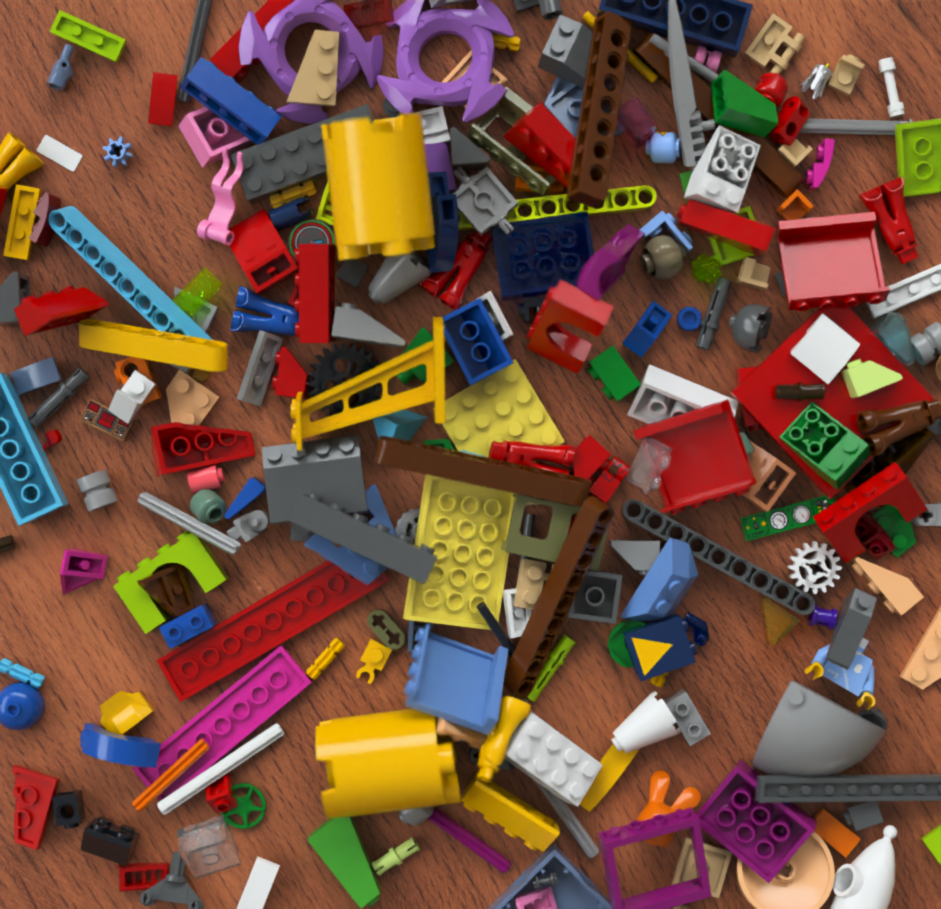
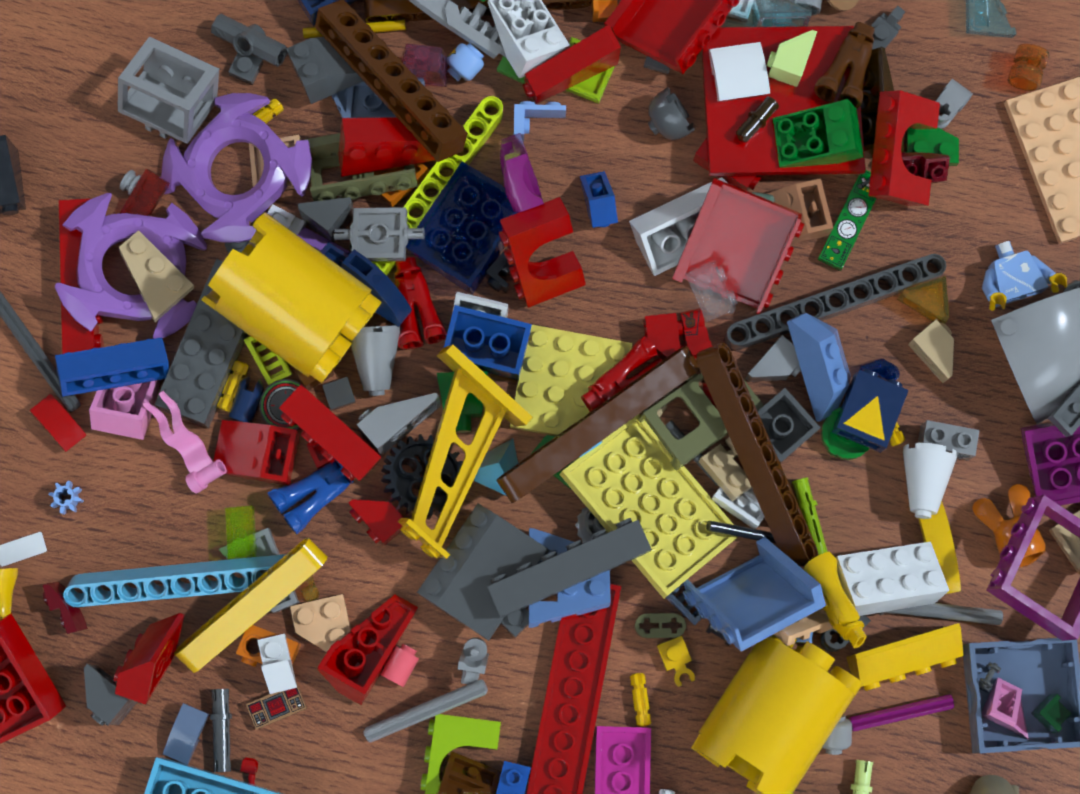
camera: 50 degrees left, 10 degrees down
(21, 222) = (49, 630): yellow plate -> none
(97, 490) = (328, 766): light grey wheel -> none
(207, 506) = (425, 683): sand green head -> none
(249, 493) = (446, 640): blue slope -> none
(259, 368) = (349, 538): light grey plate -> none
(613, 374) = (612, 256): green brick -> none
(662, 257) = (552, 138): dark tan plant -> none
(689, 319) = (619, 160): blue tile -> none
(706, 268) = (591, 104): clear neon green gear -> none
(713, 314) = (637, 144): dark grey pin -> none
(745, 654) = (936, 349): none -> tan slope
(753, 274) = (629, 81): tan panel -> none
(819, 559) = (915, 242): white gear -> none
(823, 617) = (958, 261): dark purple bush -> none
(850, 627) = (985, 243): dark grey slope -> none
(894, 588) = (982, 185): light nougat slope -> none

